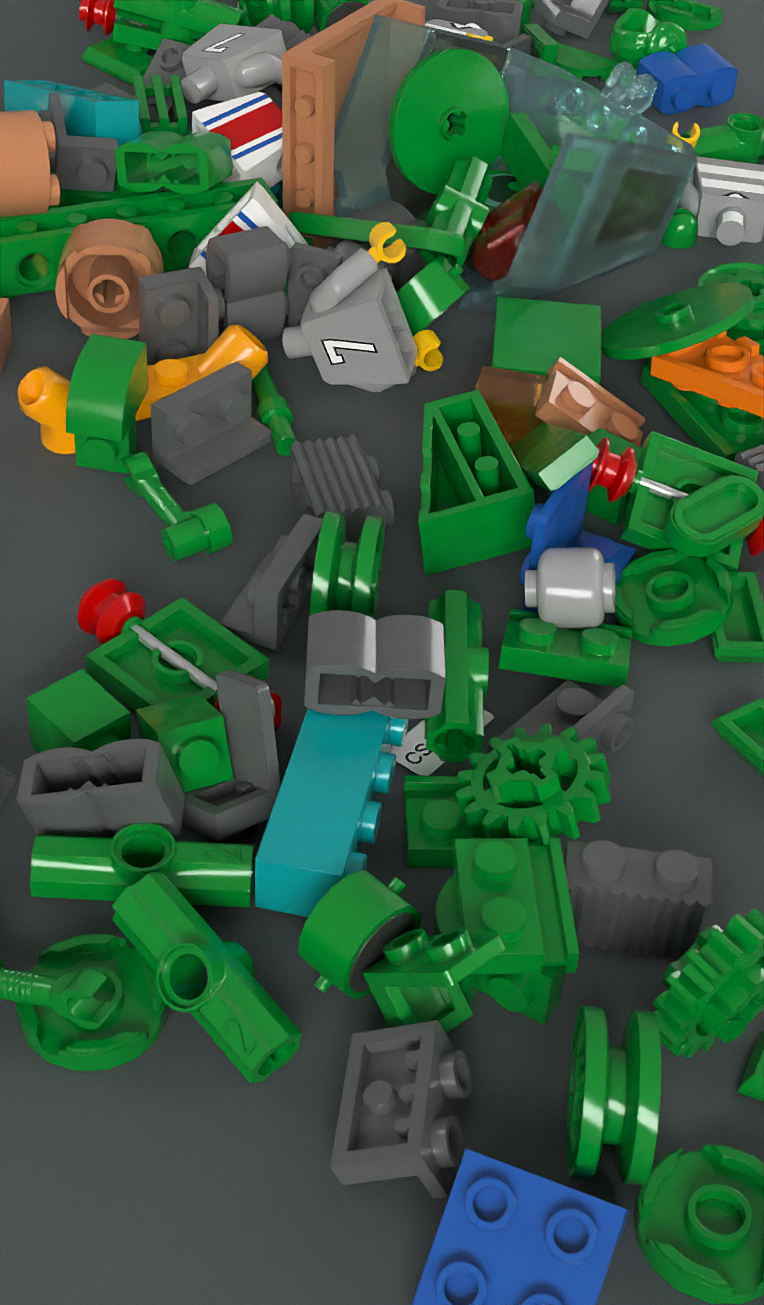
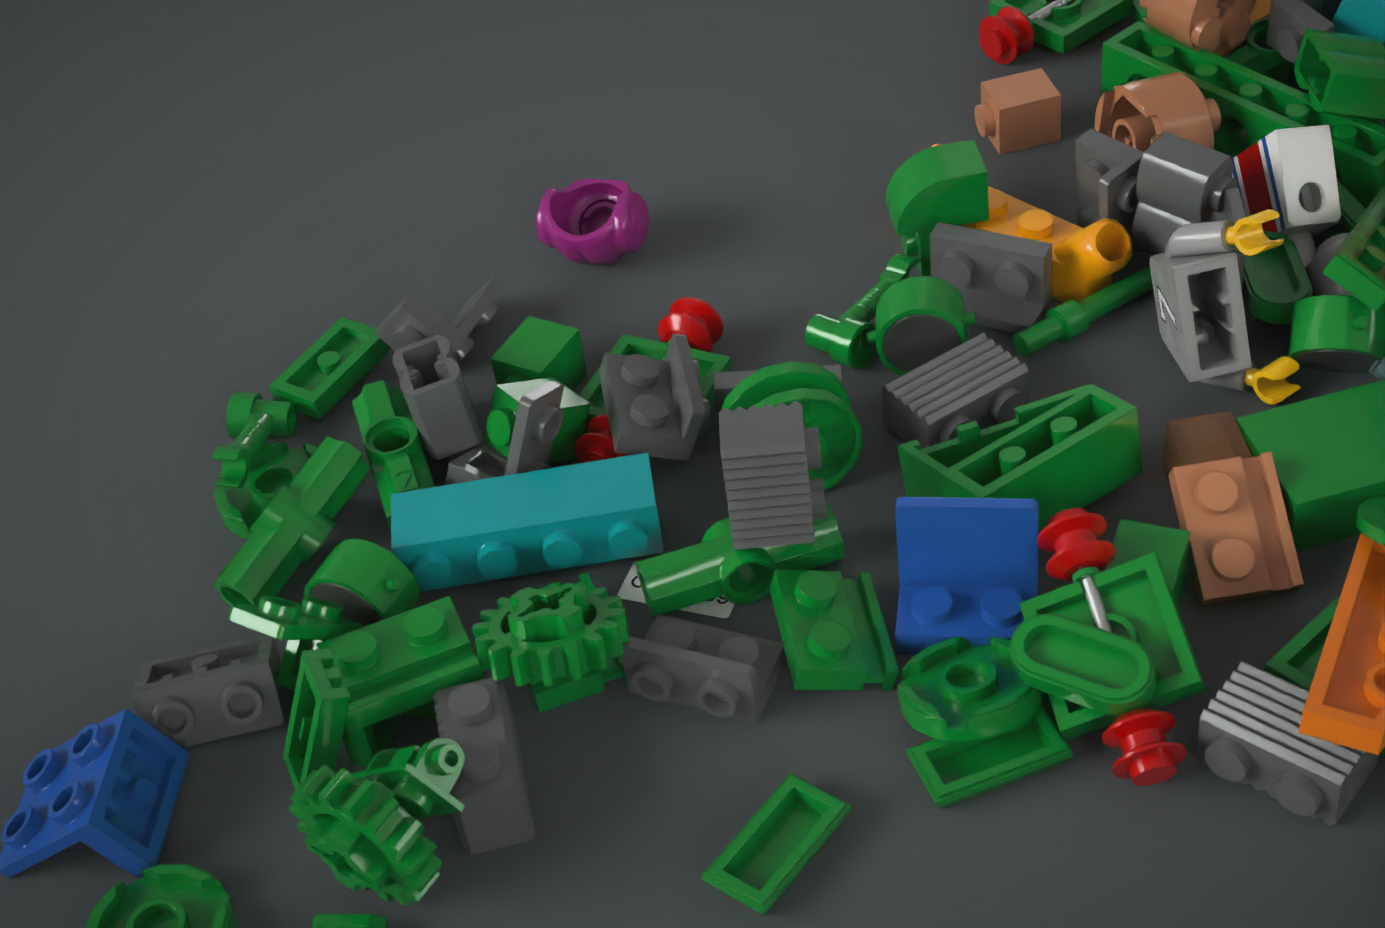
camera: 80 degrees right, 0 degrees up
(242, 634) = (655, 402): none -> dark grey bracket
(246, 475) = (919, 322): none -> piece
(374, 665) = (630, 468): dark grey brick -> none
(461, 573) = (767, 475): none -> dark grey brick
(553, 455) = (1053, 490): green tile -> none
(555, 941) = (315, 716): none -> green tile
(571, 587) = (878, 586): light grey head -> none
(613, 1095) = (215, 790): green wheel -> none
(641, 959) = (419, 776): none -> green hinge

